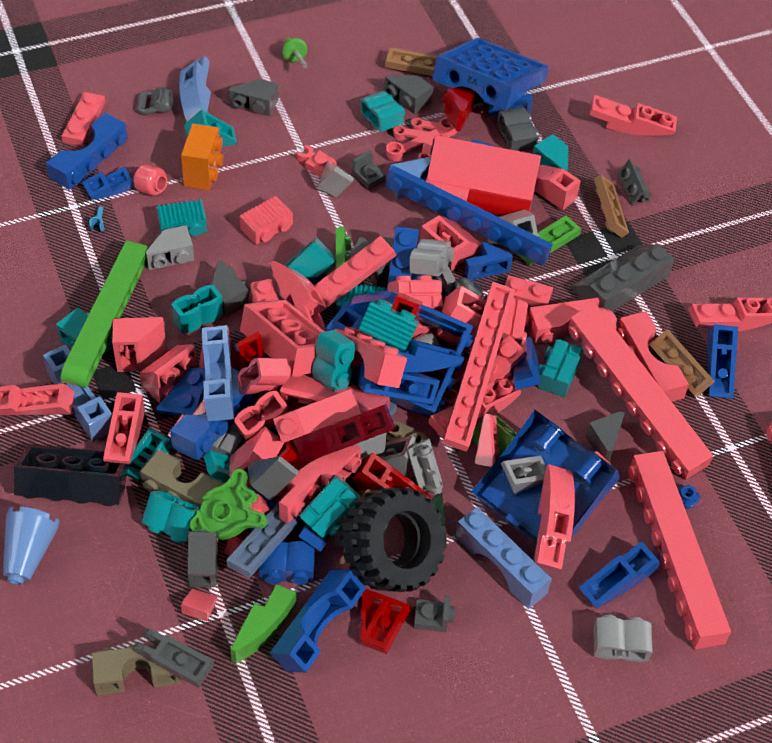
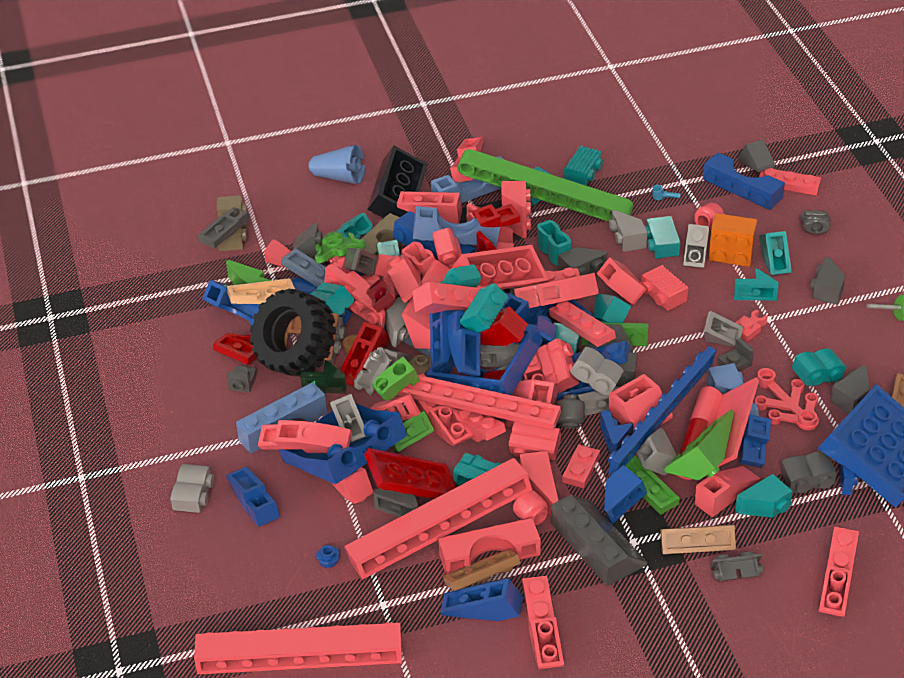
camera: 100 degrees right, 10 degrees down
(46, 288) = (583, 165): none -> teal brick
(49, 136) = (756, 156): none -> dark grey slope
(110, 185) = (706, 193): blue slope -> none
(193, 87) = (822, 239): medium blue slope -> none
(194, 186) = (696, 245): none -> light grey slope
(214, 324) = (500, 217): none -> red slope
(259, 252) = (621, 280): none -> coral slope
(262, 147) = (759, 288): none -> teal slope
(312, 585) = (257, 292): none -> light nougat wing
(458, 105) = (817, 415): red slope -> none
(472, 423) = (395, 379): none -> bright green leg
(527, 370) = (477, 442): blue panel -> none
(528, 184) = (705, 452): none -> bright green wedge
(573, 253) = (622, 493): none -> blue slope
(592, 413) = (409, 474): none -> red plate
(679, 551) = (268, 537): coral brick -> none

